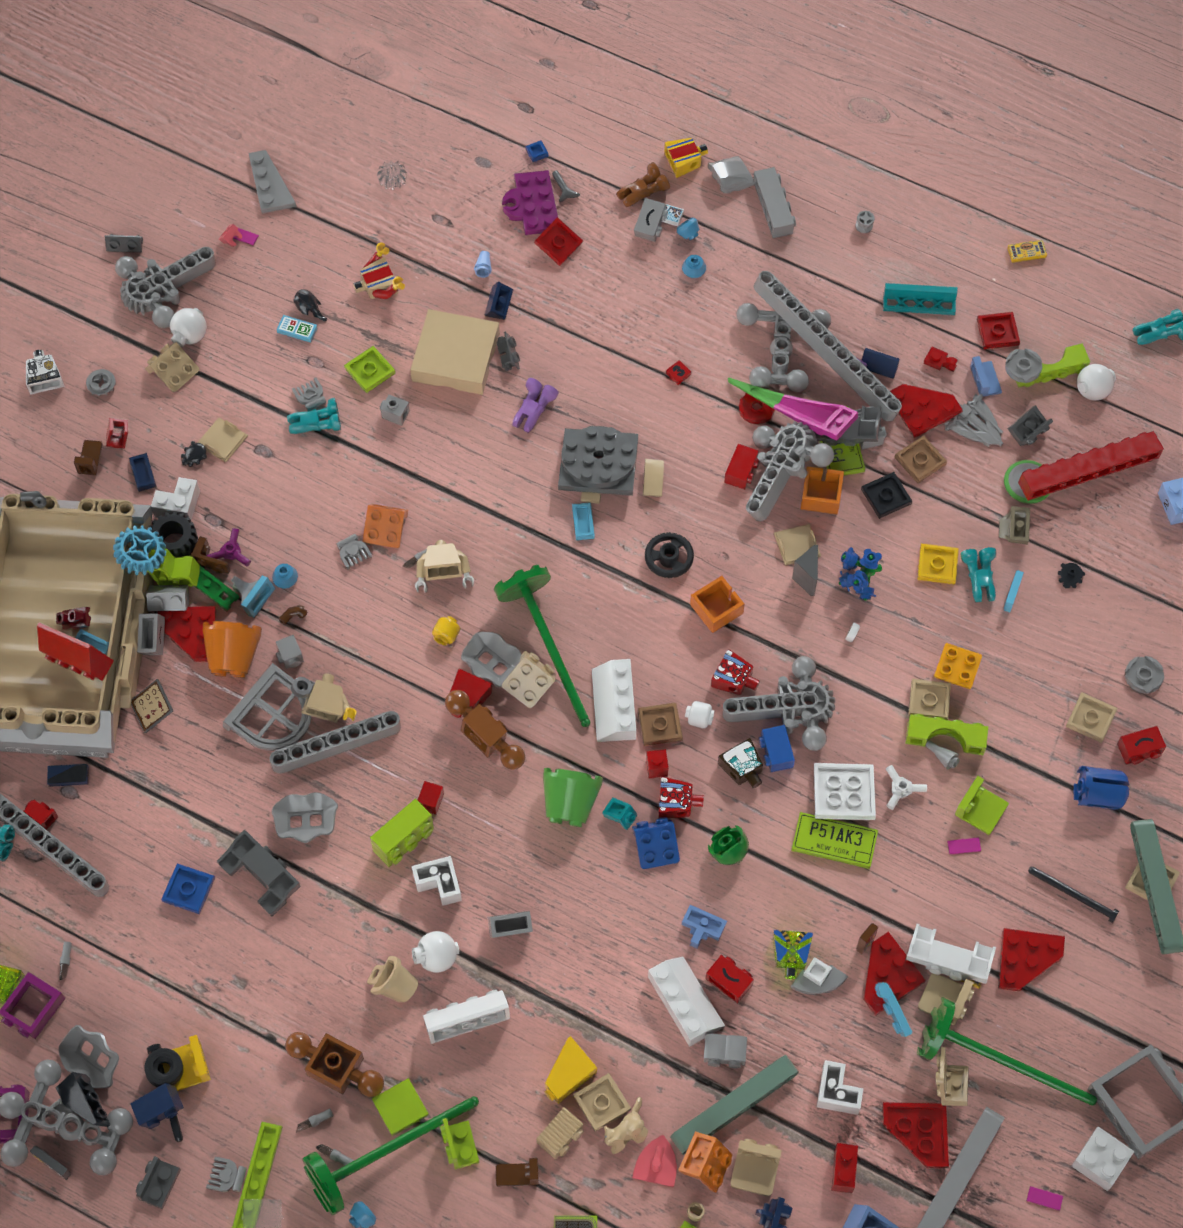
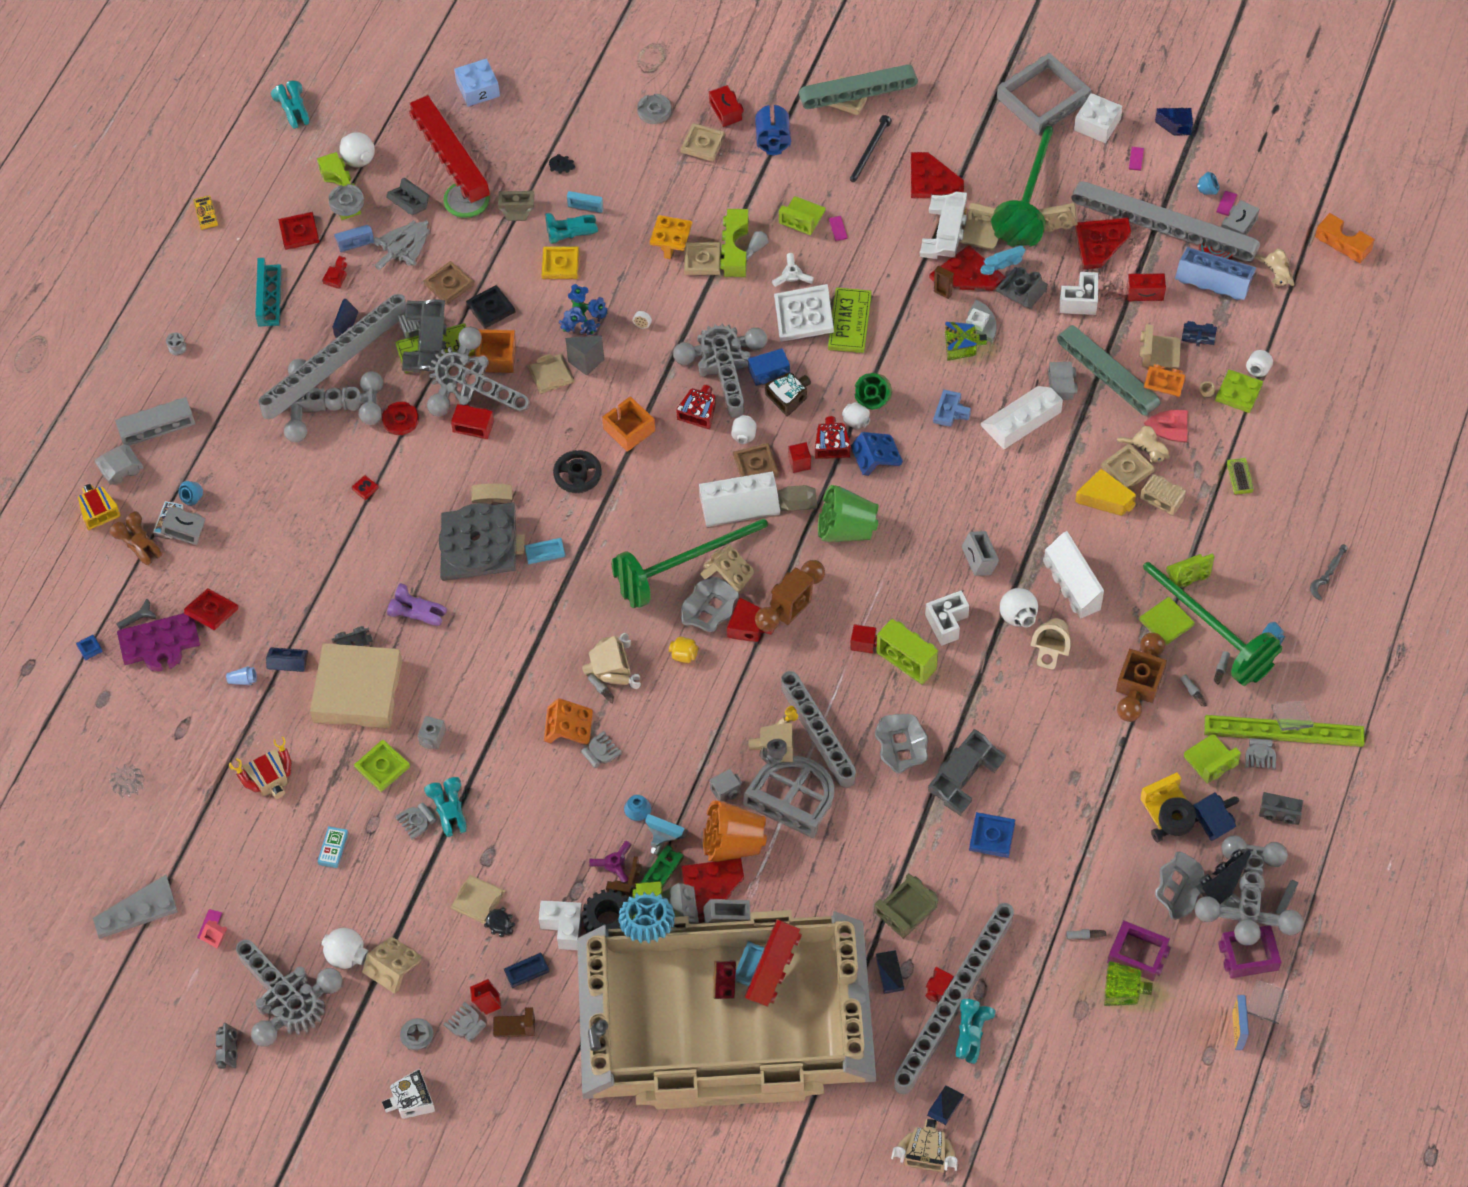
camera: 95 degrees left, 5 degrees down
(100, 421) = (468, 1024): none -> light grey piece
(129, 797) = (907, 906): none -> olive panel
(151, 706) = (805, 899): piece -> none
(228, 1121) = (1211, 758): none -> lime bracket
(293, 611) = (678, 794): reddish brown arm -> none
(306, 301) = (301, 840): black piece -> none
(517, 1174) = (1204, 519): reddish brown bracket -> none
(606, 758) = (797, 498): none -> dark tan slope
(620, 812) = (853, 481): teal bracket -> none
(694, 266) = (236, 485): dark azure cone -> none
(703, 827) = (856, 415): none -> white head
(729, 978) = (996, 383): red brick -> none
(819, 416) = (426, 341): dark pink plate -> none
(860, 1030) = (1023, 287): none -> dark grey slope
(925, 408) = (394, 277): red plate -> none

